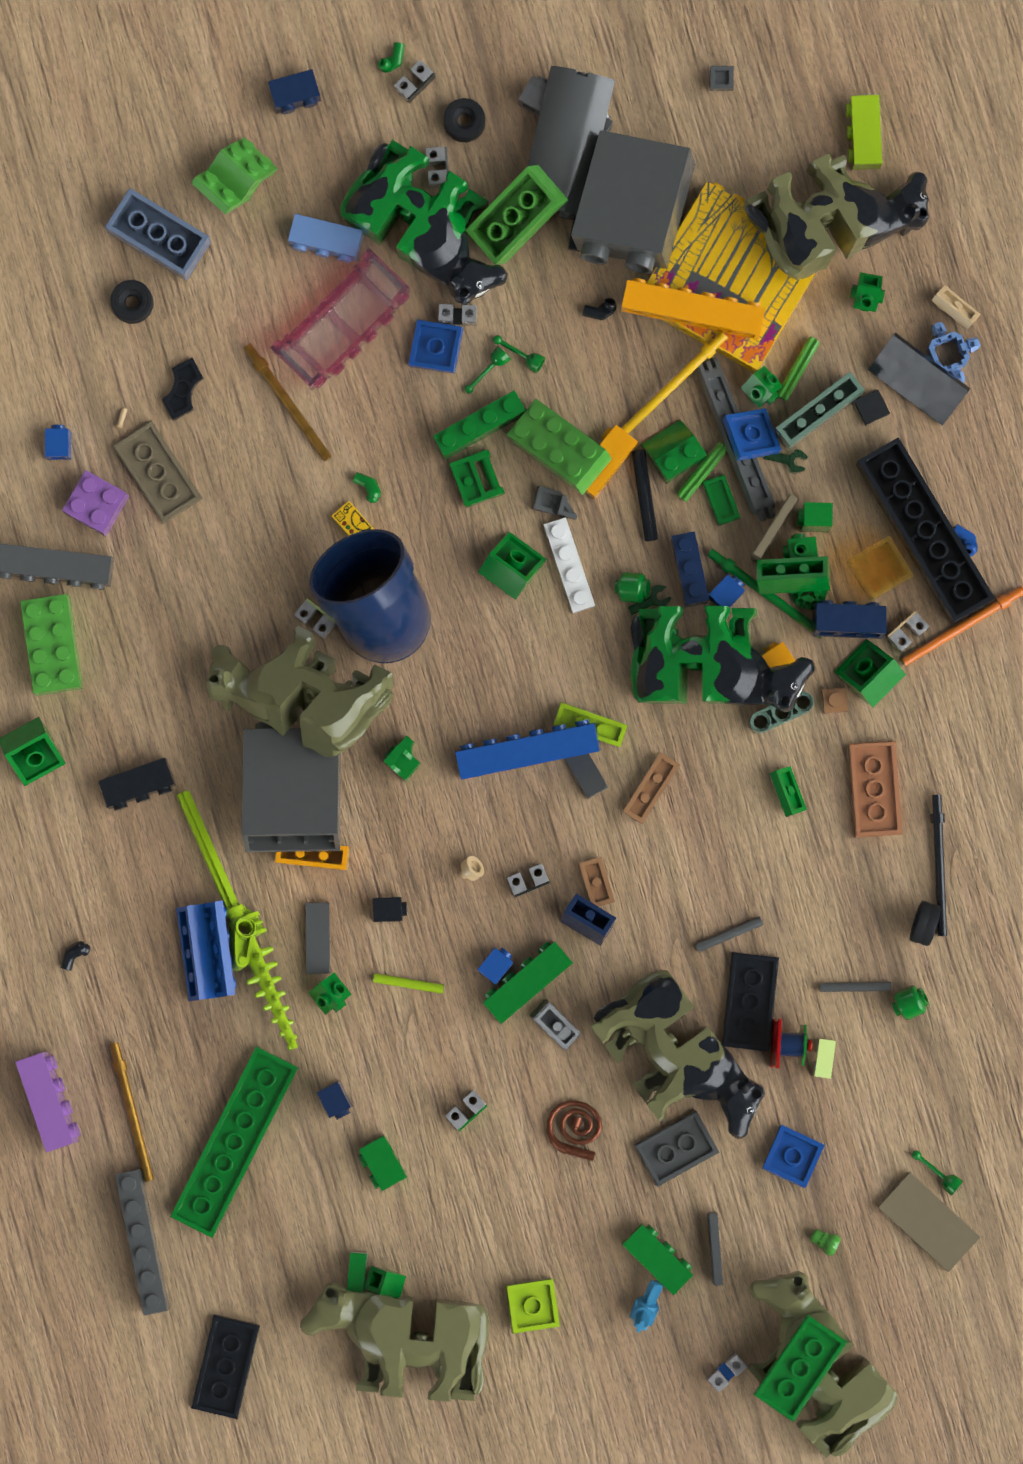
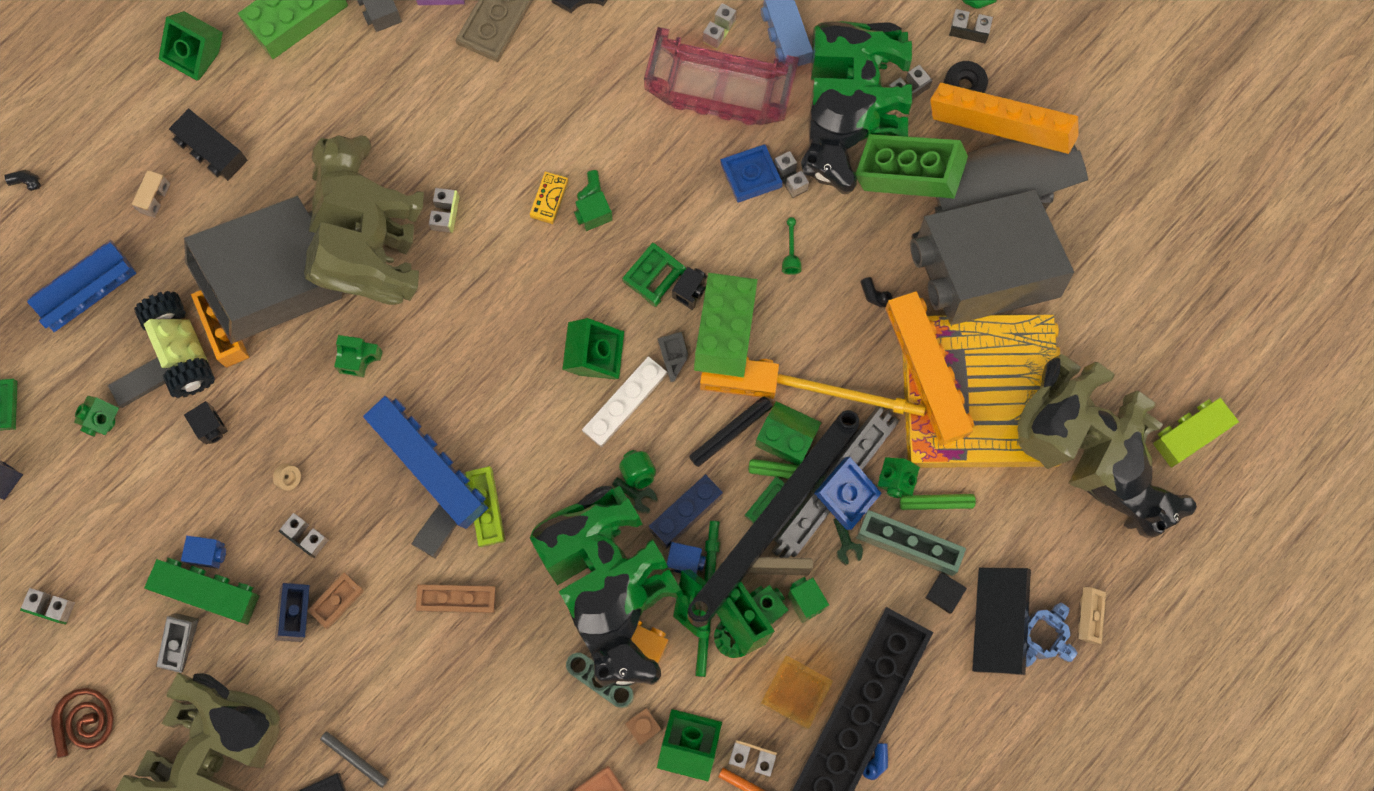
camera: 55 degrees right, 10 degrees down
(153, 854) = (144, 200): none -> tan piece
(242, 947) = (100, 315): lime piece -> none
(261, 365) = (643, 43): pearl gold bar -> none
(287, 293) = (716, 32): none -> flat silver piece
(306, 898) = (175, 344): none -> plate
(386, 622) = (481, 235): dark blue cylinder -> none
(392, 496) = (593, 211): none -> green brick
(408, 983) = (147, 483): lime bar -> none
(479, 425) = (702, 246): green brick -> none
(498, 358) = (775, 230): green hinge -> none
(505, 456) = (689, 287): none -> black brick
(521, 113) = (1005, 118): none -> light orange brick
(721, 78) = (1153, 277): dark grey plate -> none
(739, 501) = (773, 519): none -> black piece
(767, 612) = (690, 585): none -> green plate
(788, 791) = (526, 733): green plate -> none
(849, 620) = (729, 693): dark blue brick -> none
(867, 292) = (1050, 522): green brick -> none

